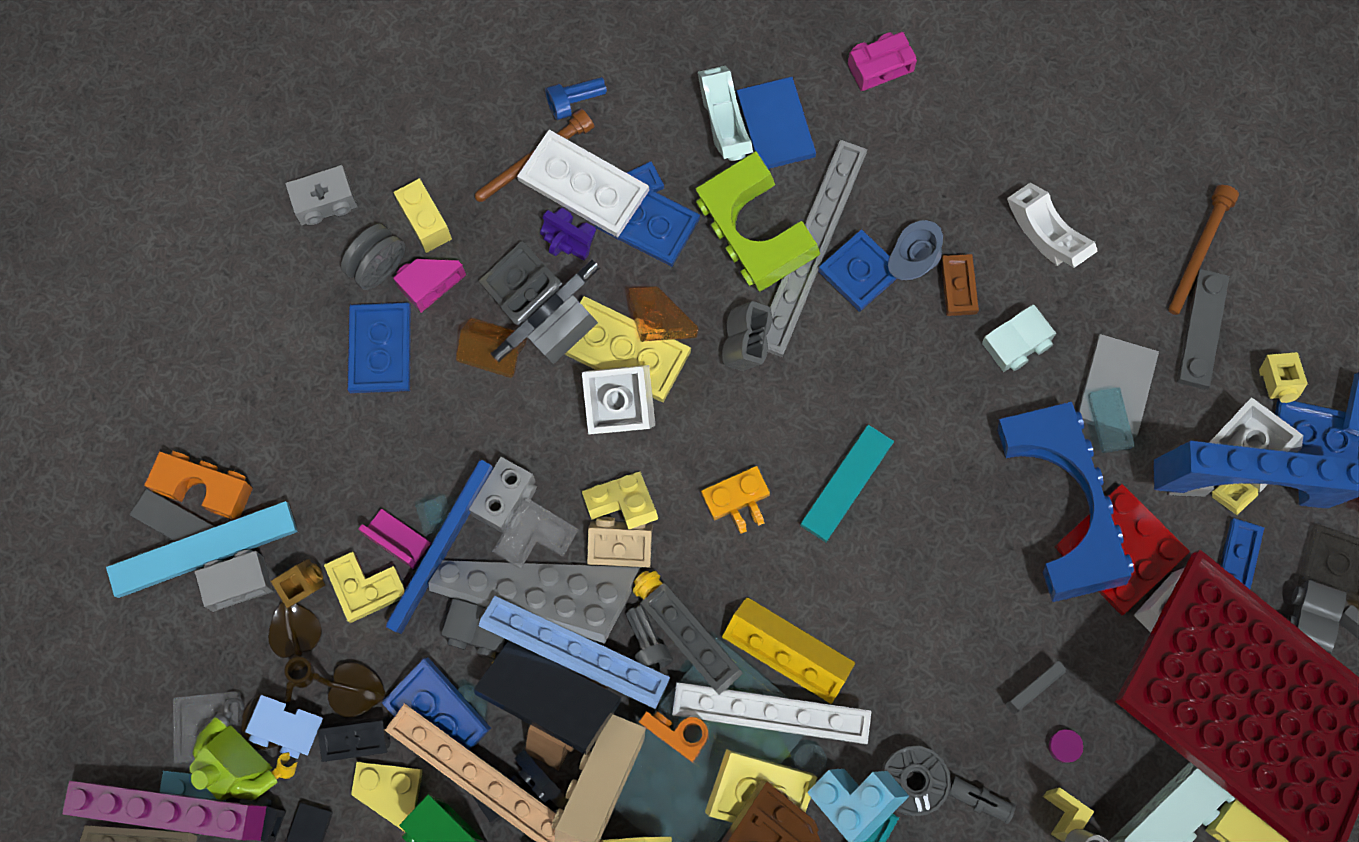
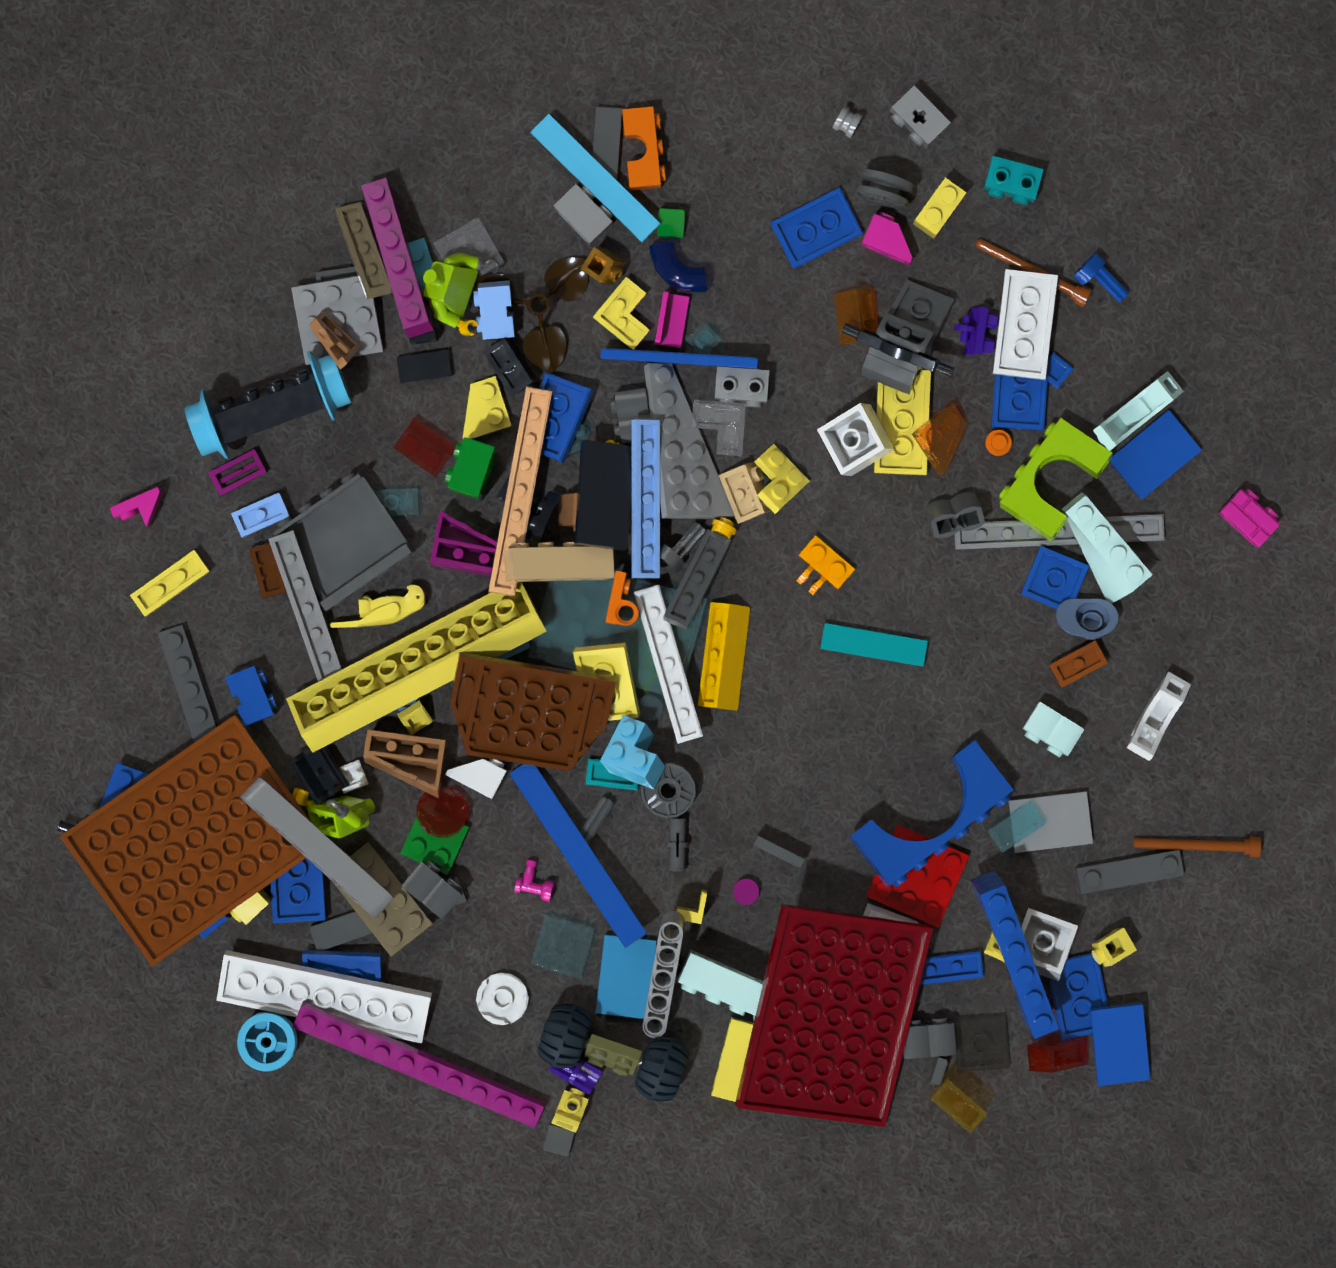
camera: 60 degrees right, 15 degrees up
(287, 267) = (847, 121): none -> light grey wheel
(294, 491) = (671, 223): none -> green slope
(346, 511) = (674, 271): none -> clear blue cylinder
(432, 135) = (1012, 180): none -> teal brick
(691, 264) = (998, 442): none -> orange plate
(864, 202) = (1108, 555): none -> light aqua wedge

